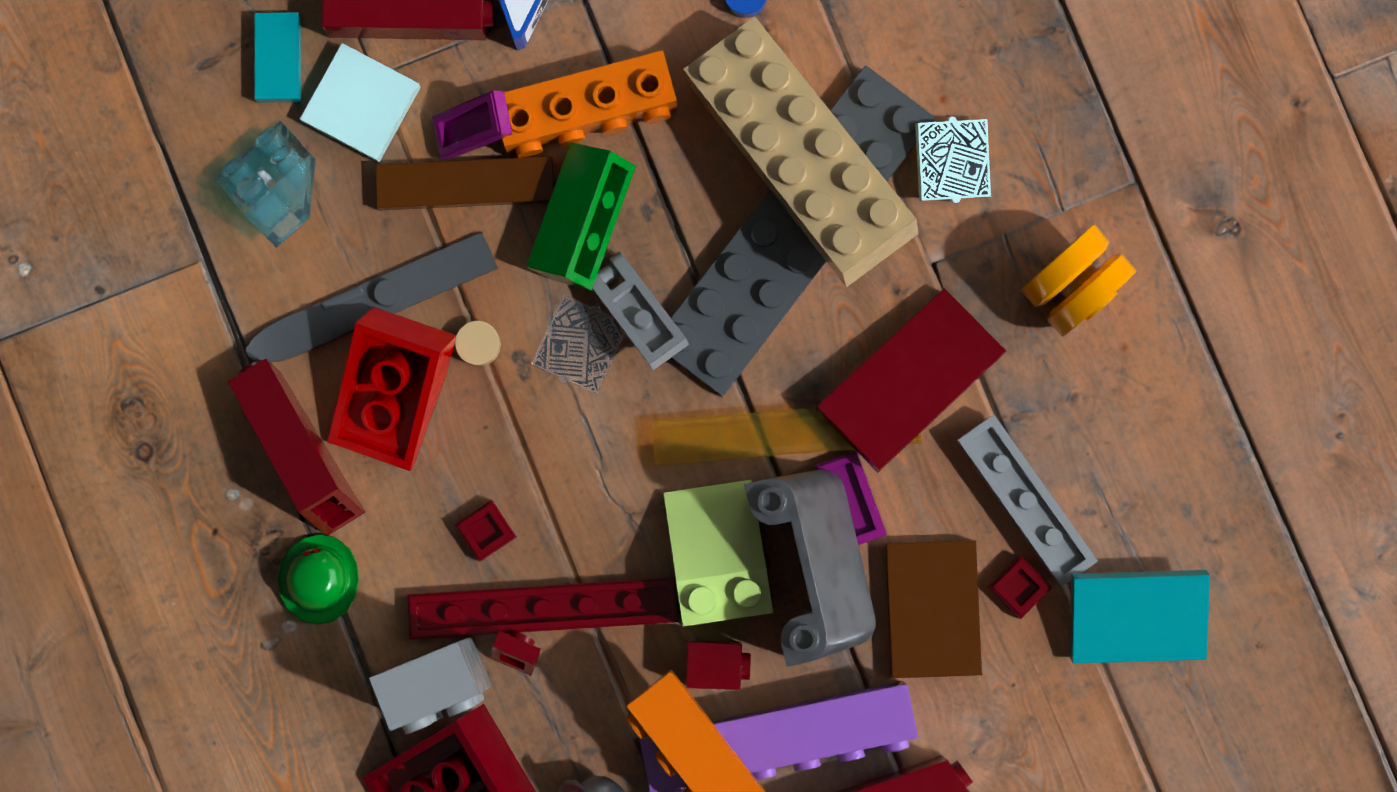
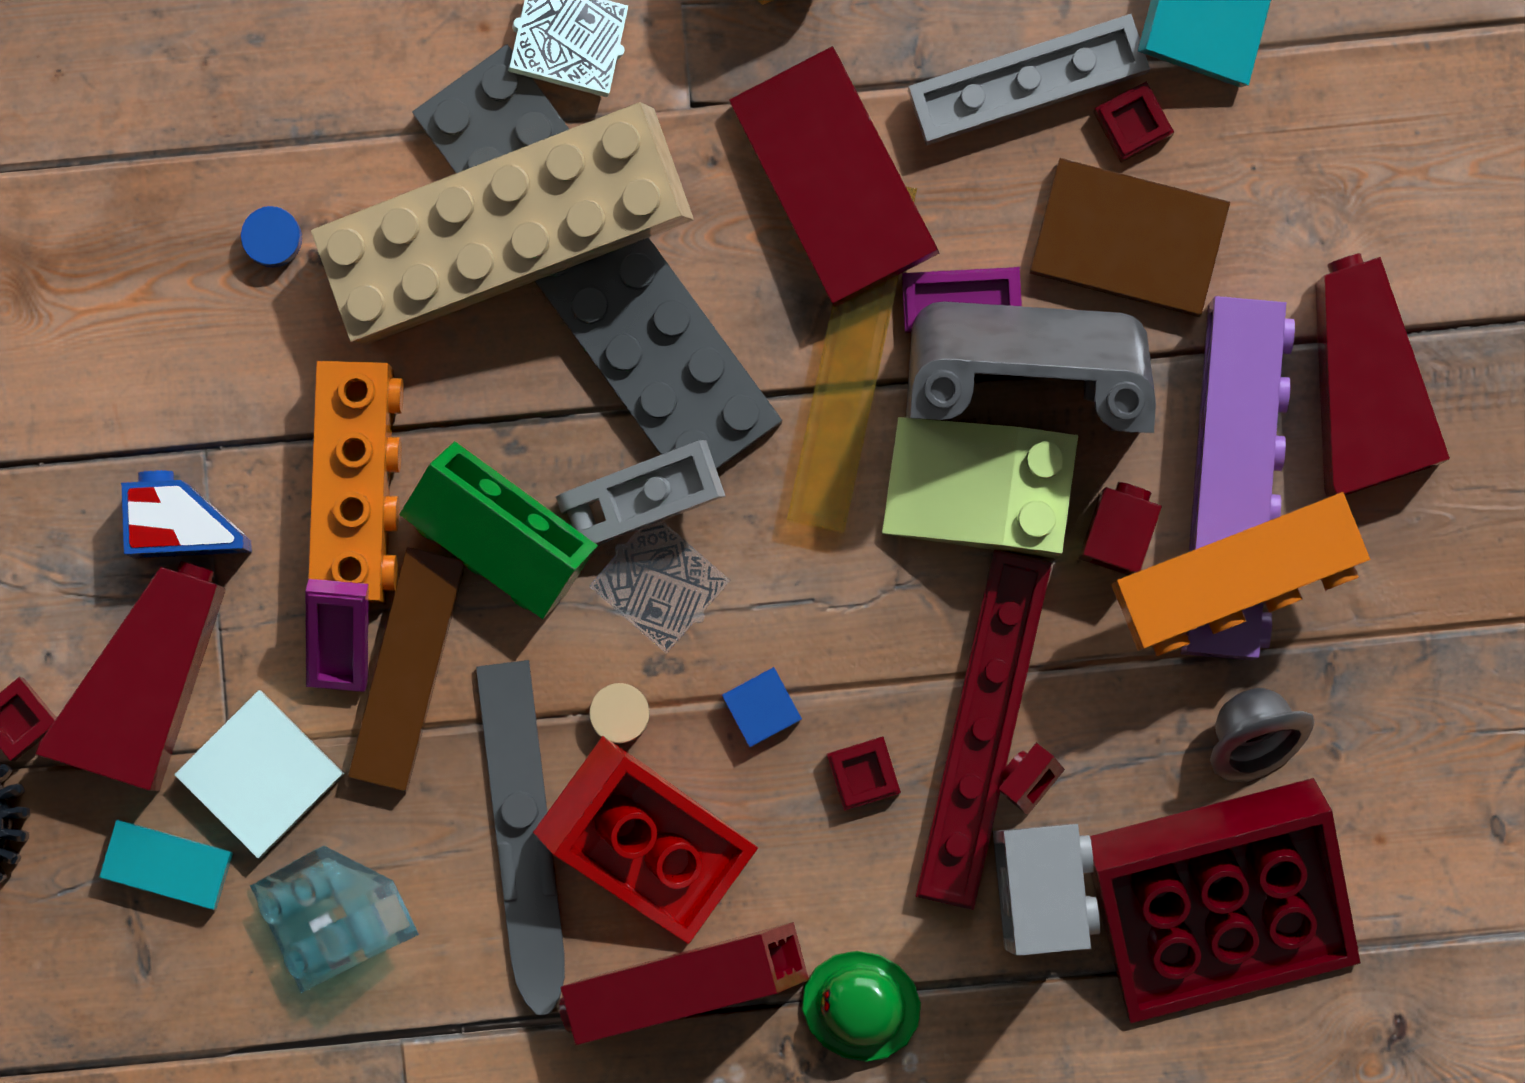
camera: 70 degrees left, 0 degrees up
(511, 443) = (761, 707): none -> blue tile

